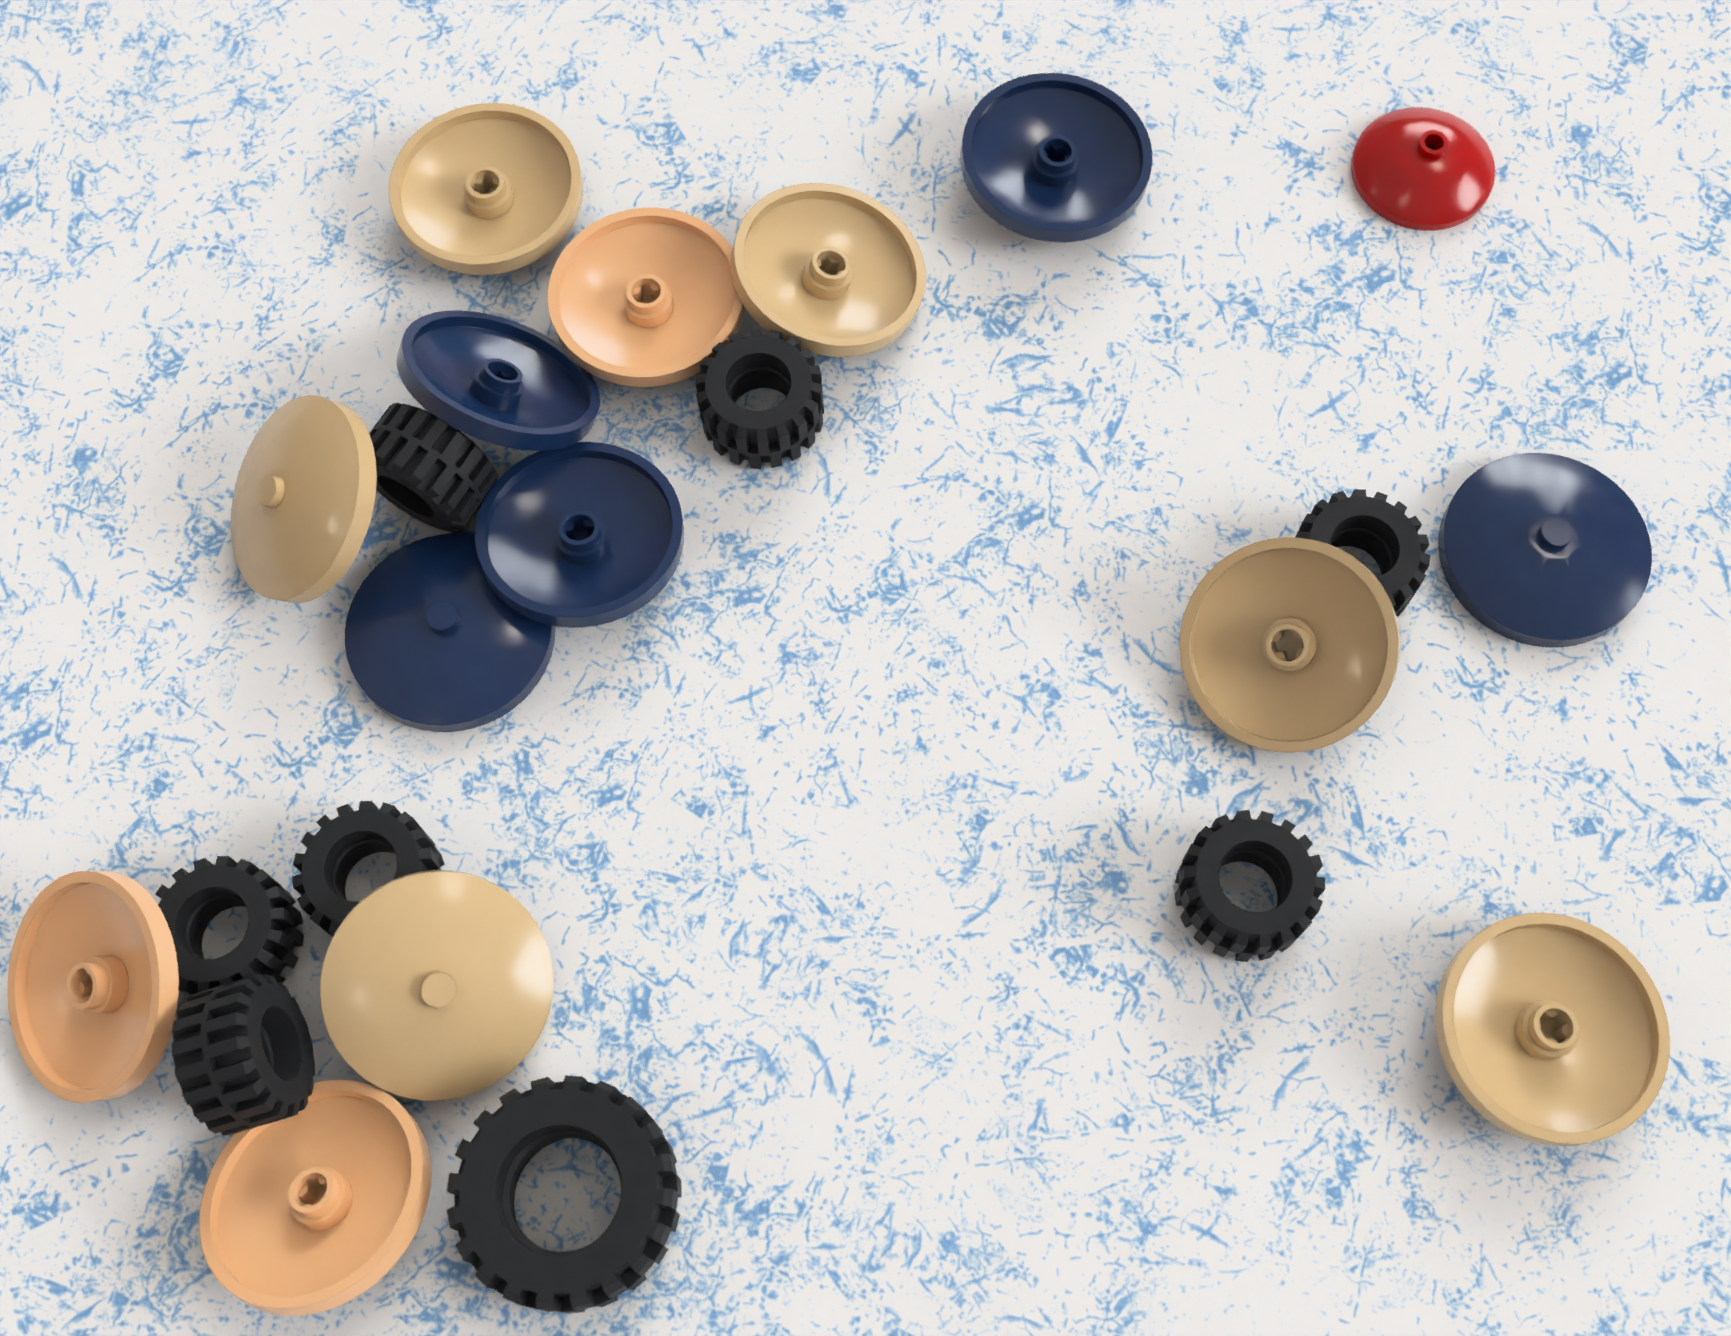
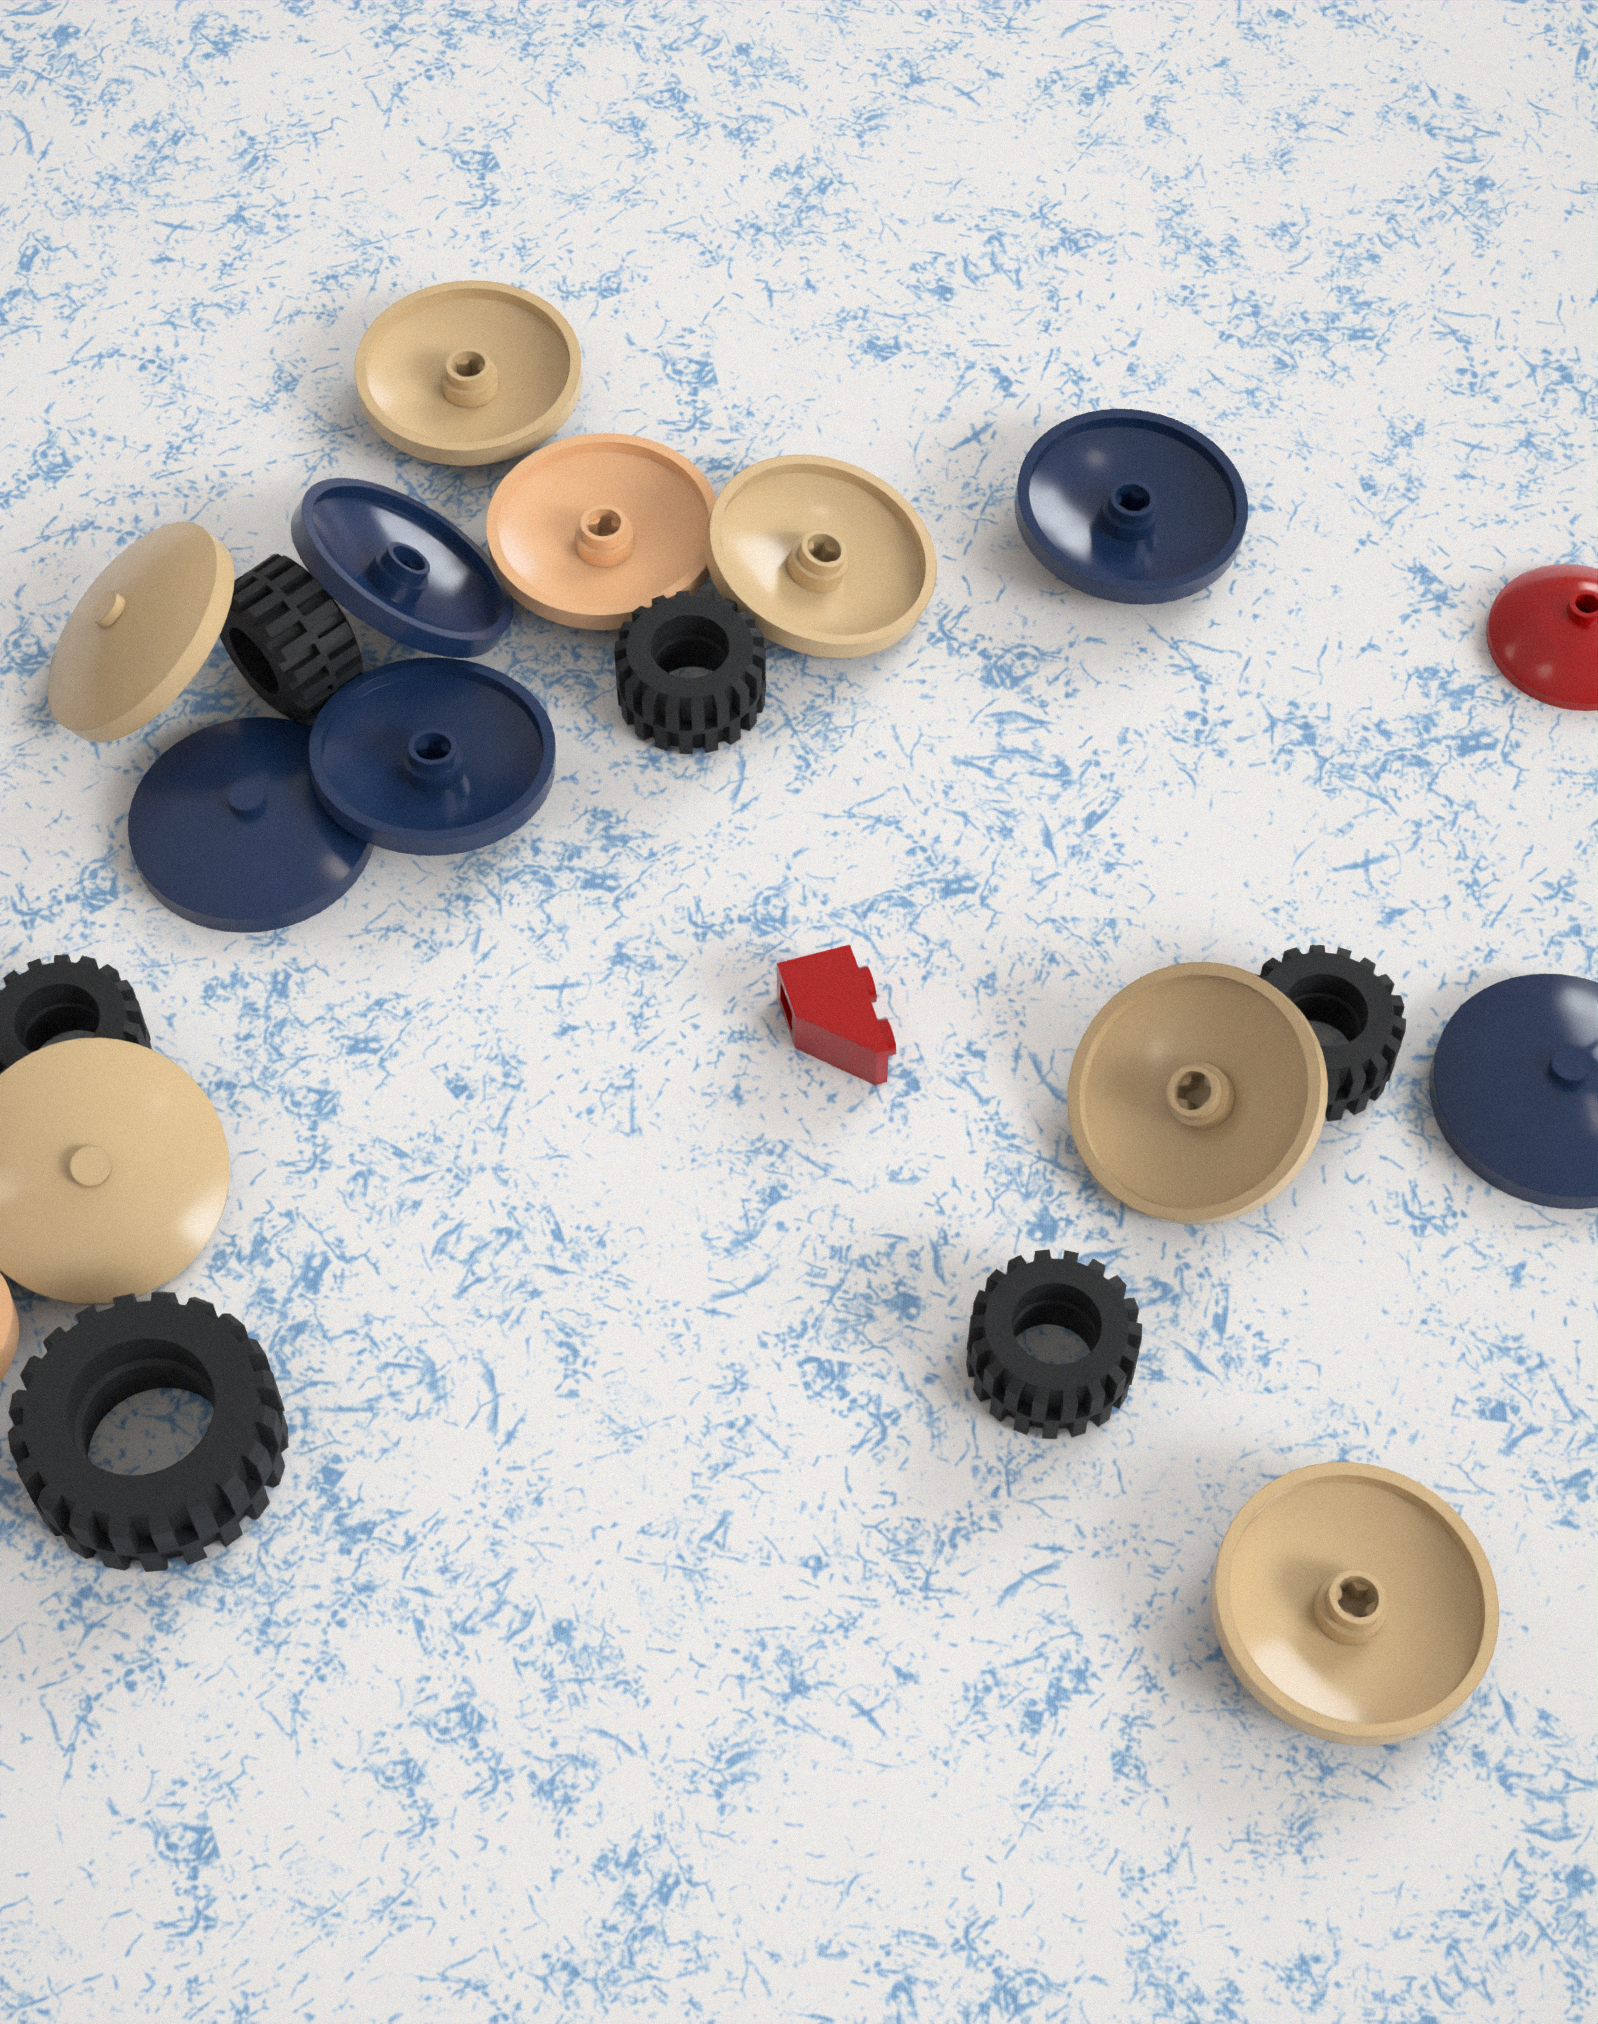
camera: 15 degrees right, 10 degrees down
(977, 659) = (833, 1015): none -> red slope

